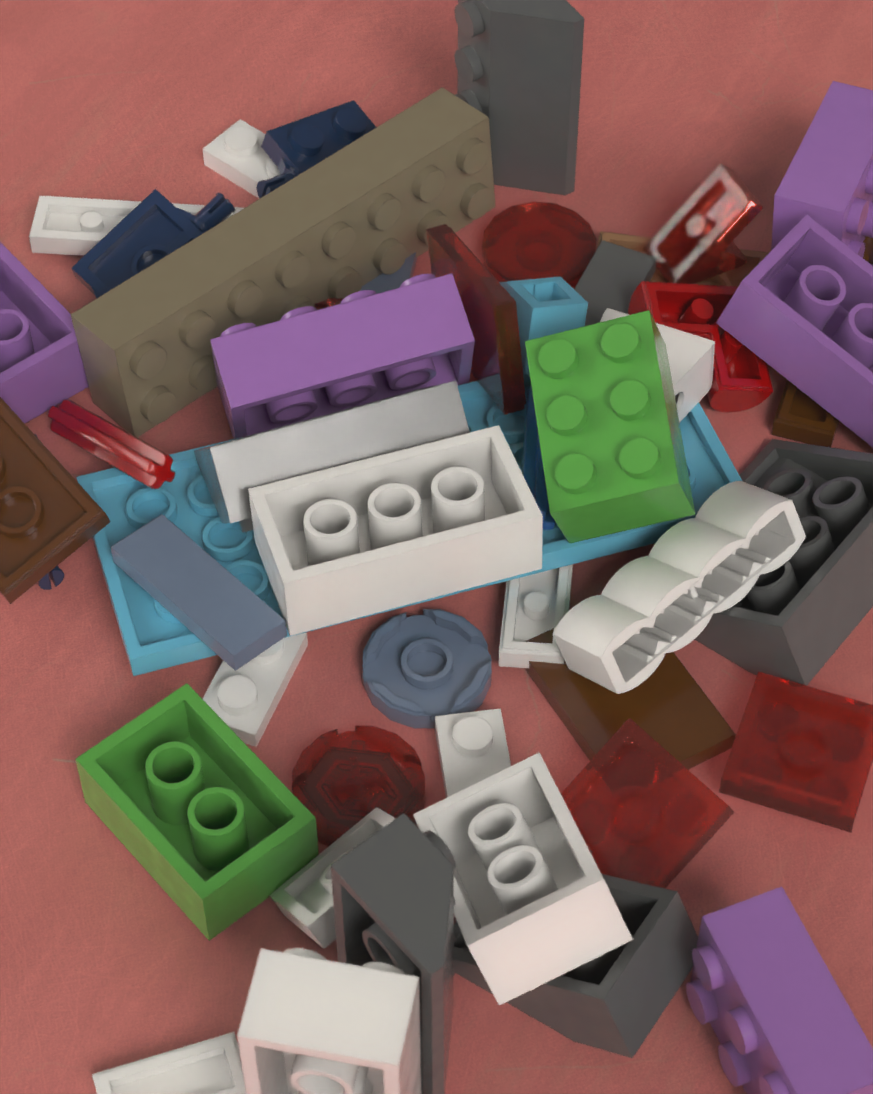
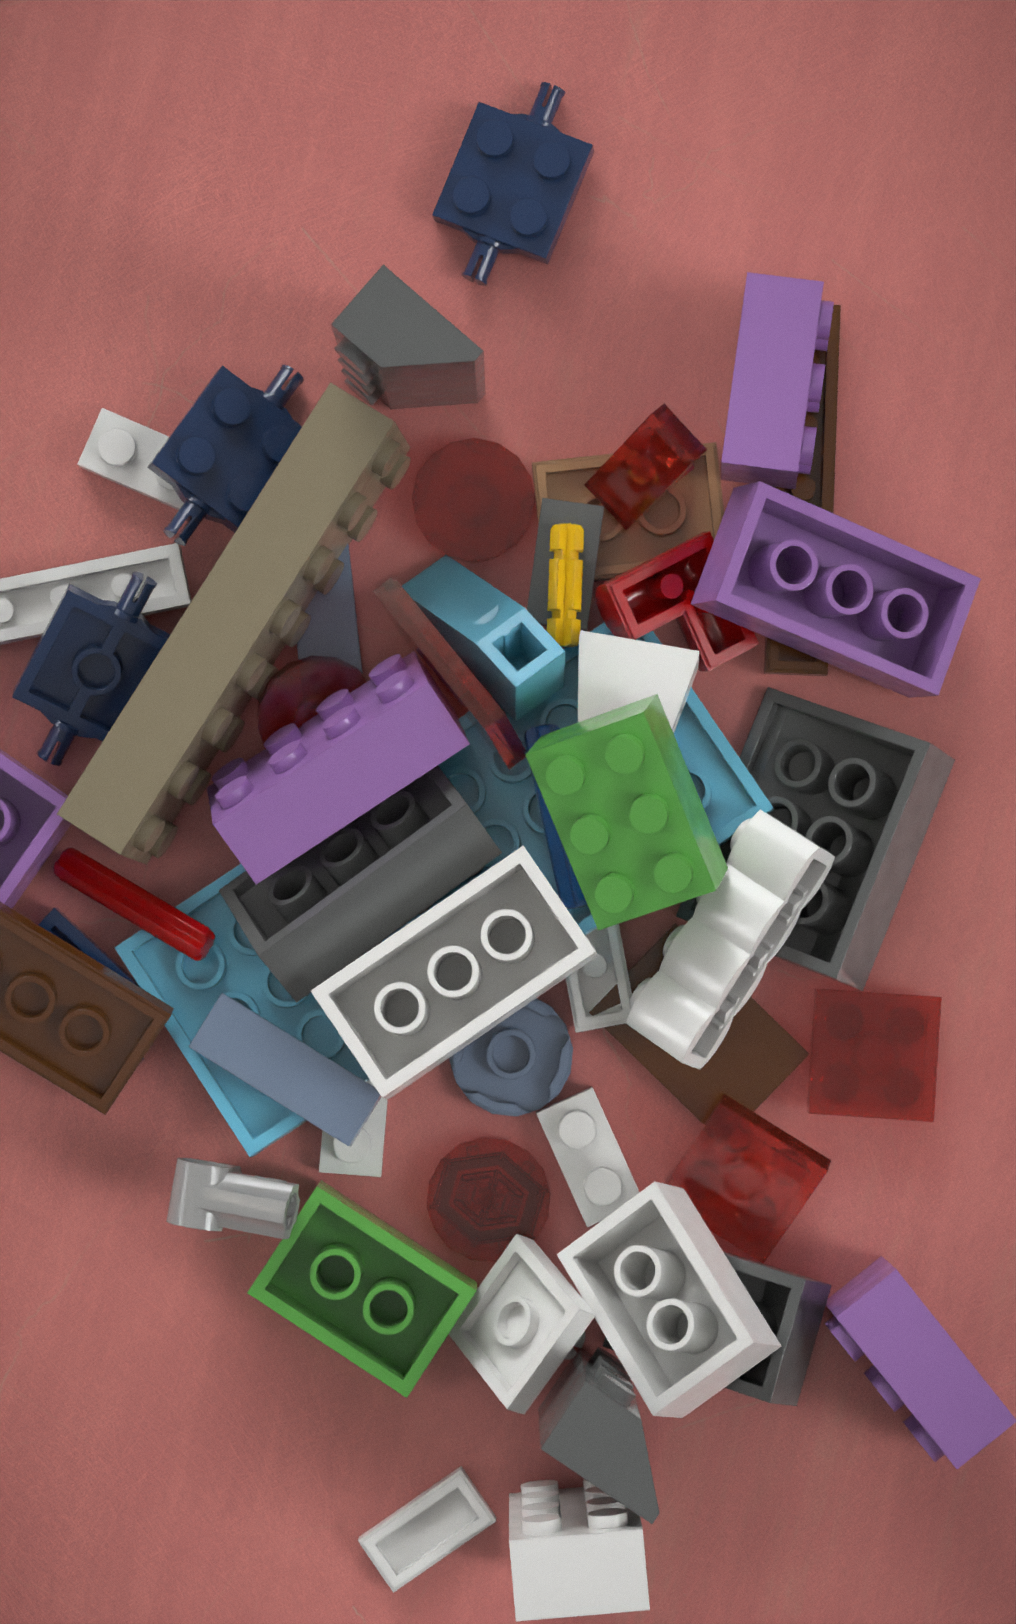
camera: 15 degrees left, 35 degrees up
(93, 673) = (220, 1197): none -> light grey piece
(606, 281) = (565, 583): none -> yellow axle
(645, 60) = (513, 183): none -> dark blue plate

